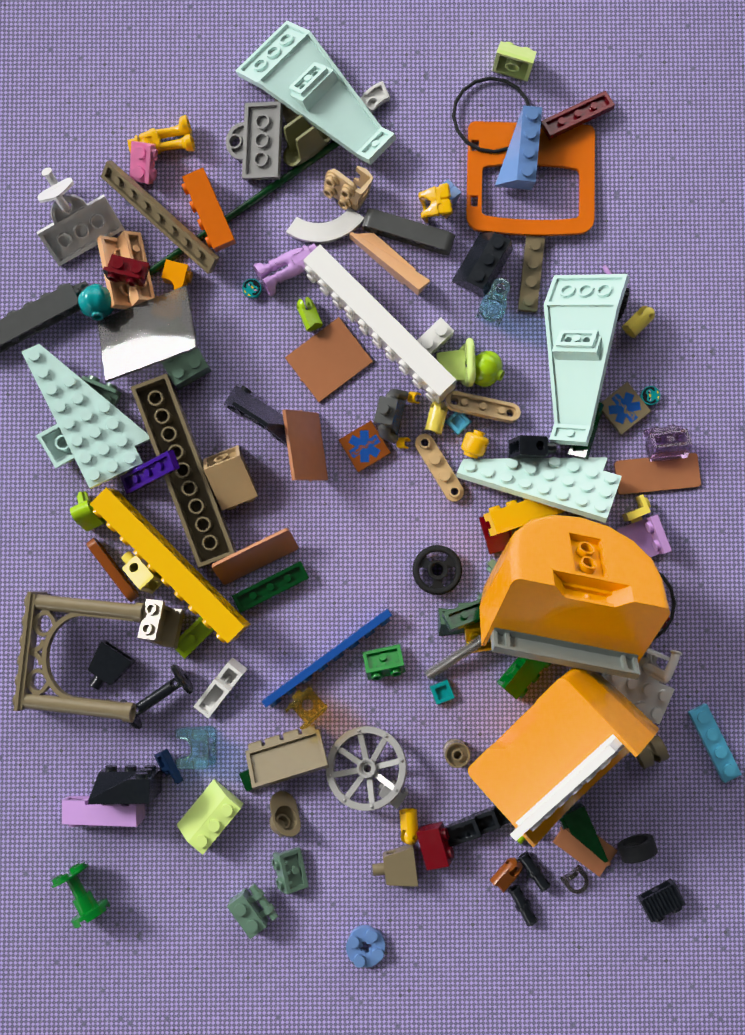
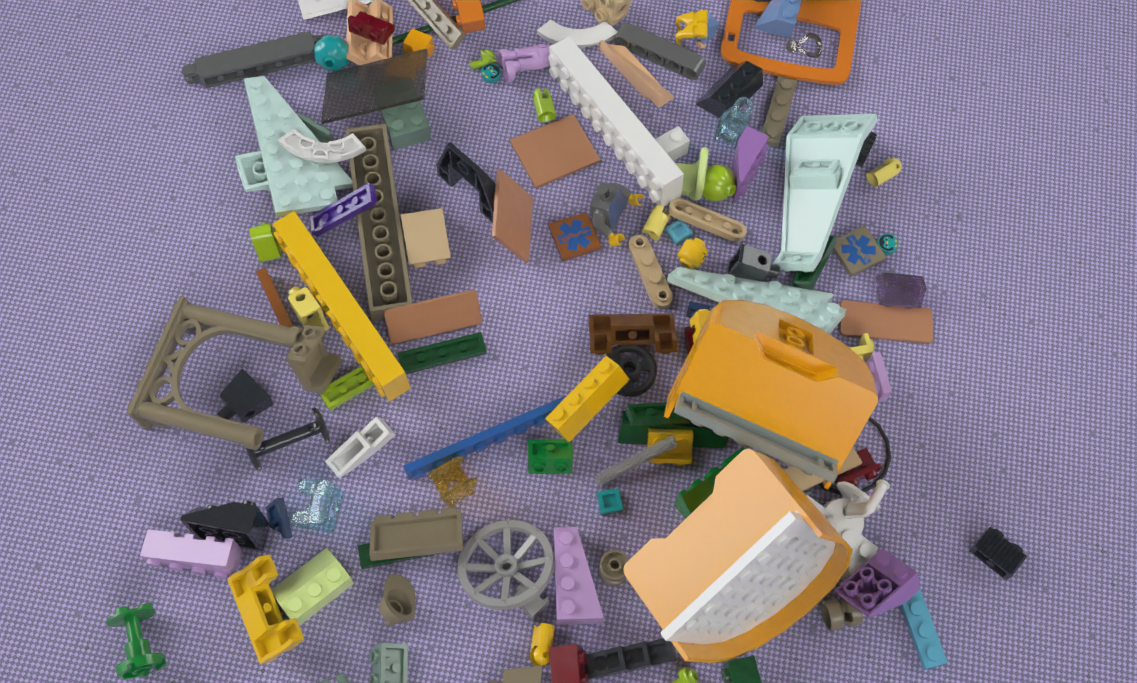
camera: 10 degrees right, 20 degrees down
(113, 417) = (320, 152): none -> white tile
(175, 850) = (260, 611): none -> yellow bracket
(245, 273) = (487, 57): none -> lime plate
(406, 610) = (587, 398): none -> yellow brick
(426, 775) = (574, 585): none -> lavender wedge
(434, 533) = (632, 330): none -> reddish brown bracket
(488, 501) = (694, 307): none -> dark blue plate
(508, 338) = (748, 156): none -> medium lavender slope
(535, 197) = (792, 45): none -> clear smoke piece
(680, 728) = (879, 584): none -> medium lavender slope

